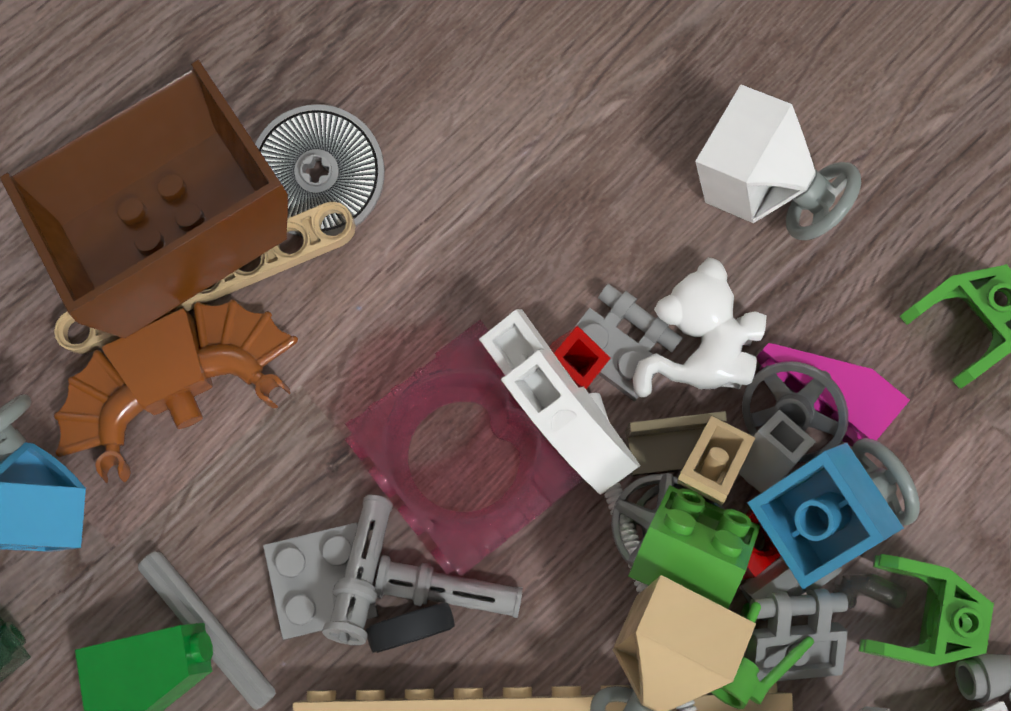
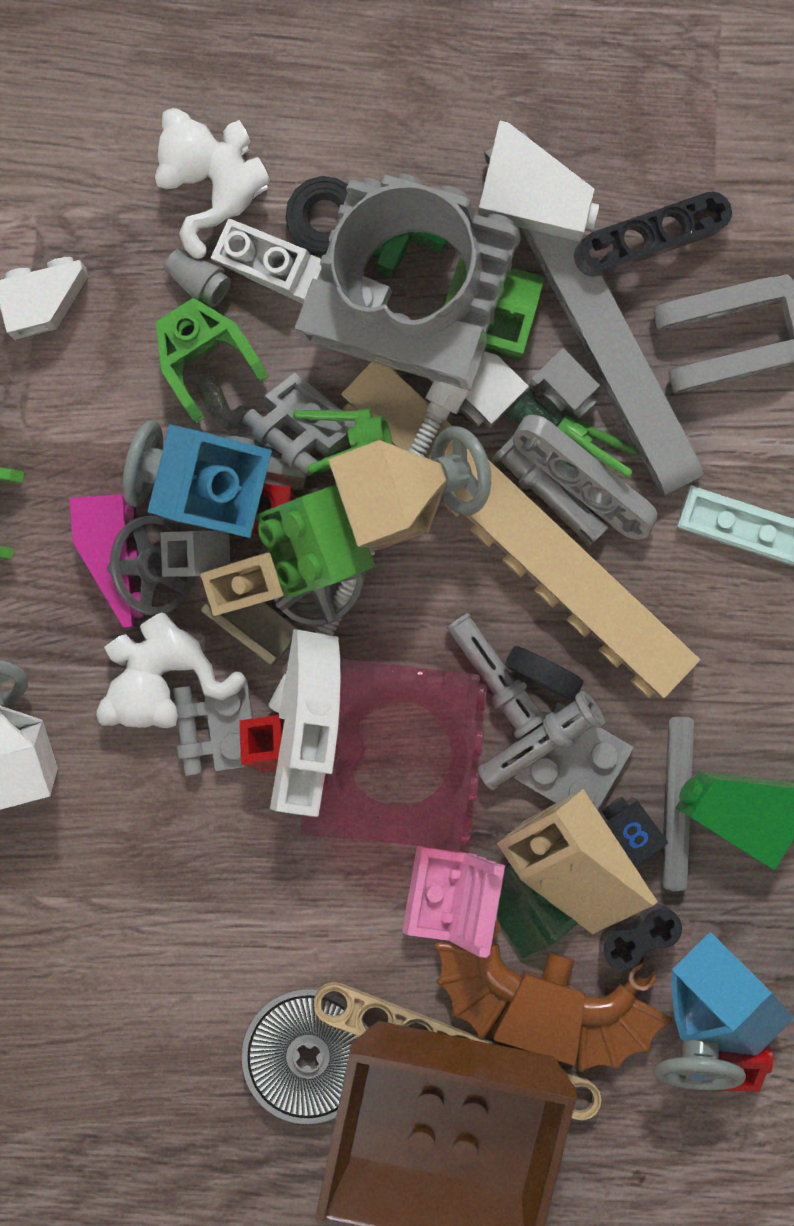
camera: 135 degrees left, 10 degrees up
(140, 495) = (640, 936): none -> black axle
(222, 570) = (633, 829): none -> black brick
(242, 502) = (577, 864): none -> tan slope
(253, 437) = (529, 917): none -> clear green panel
(314, 384) = (454, 898): none -> bright pink plate

